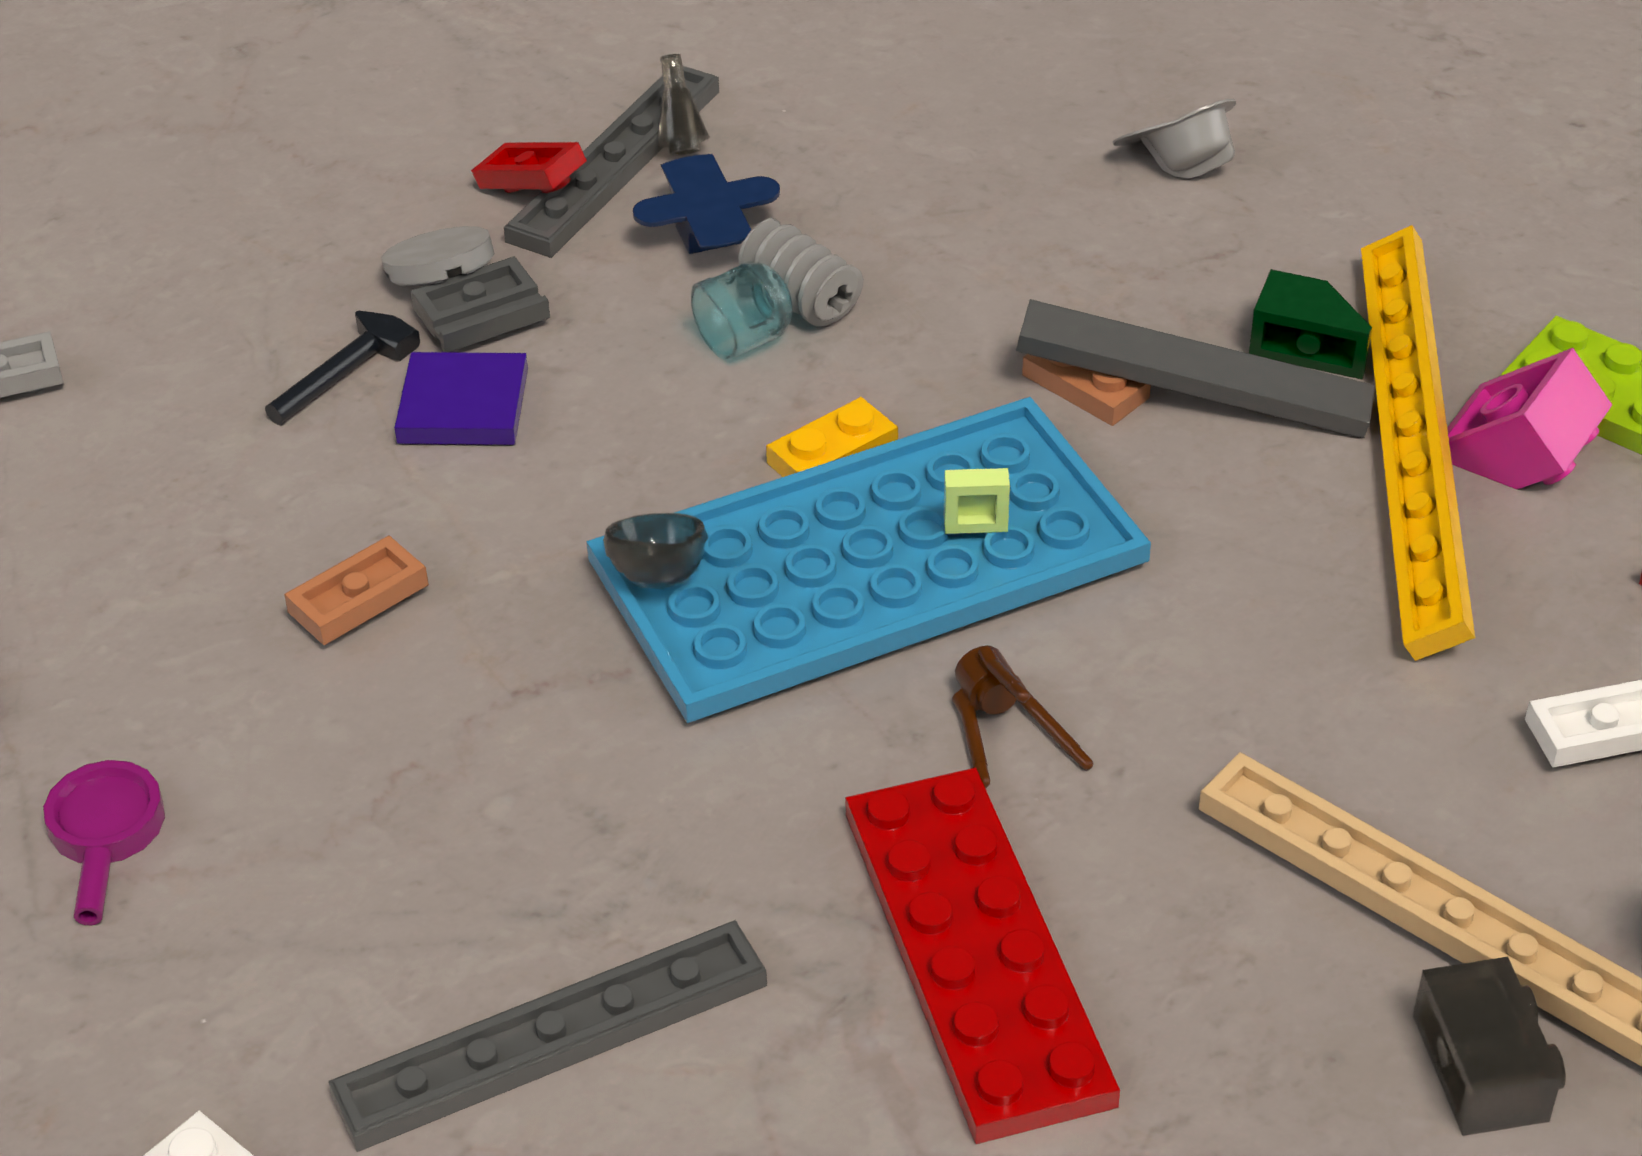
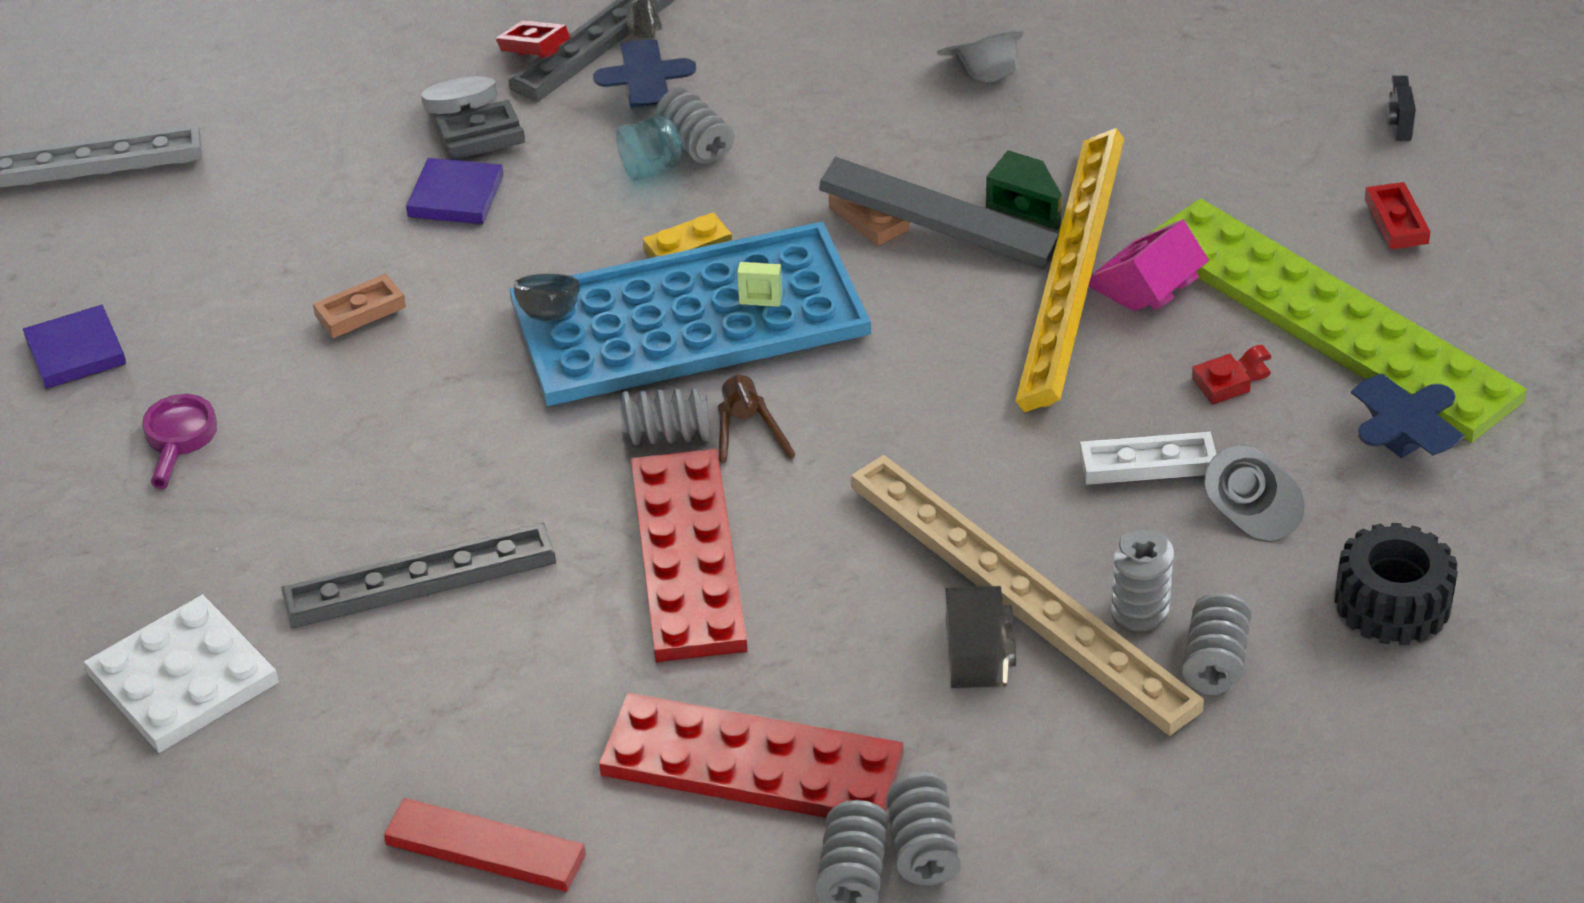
camera: 10 degrees right, 0 degrees up
(378, 334) = (411, 144): black piece -> none
(882, 722) = (664, 416): none -> light grey piece

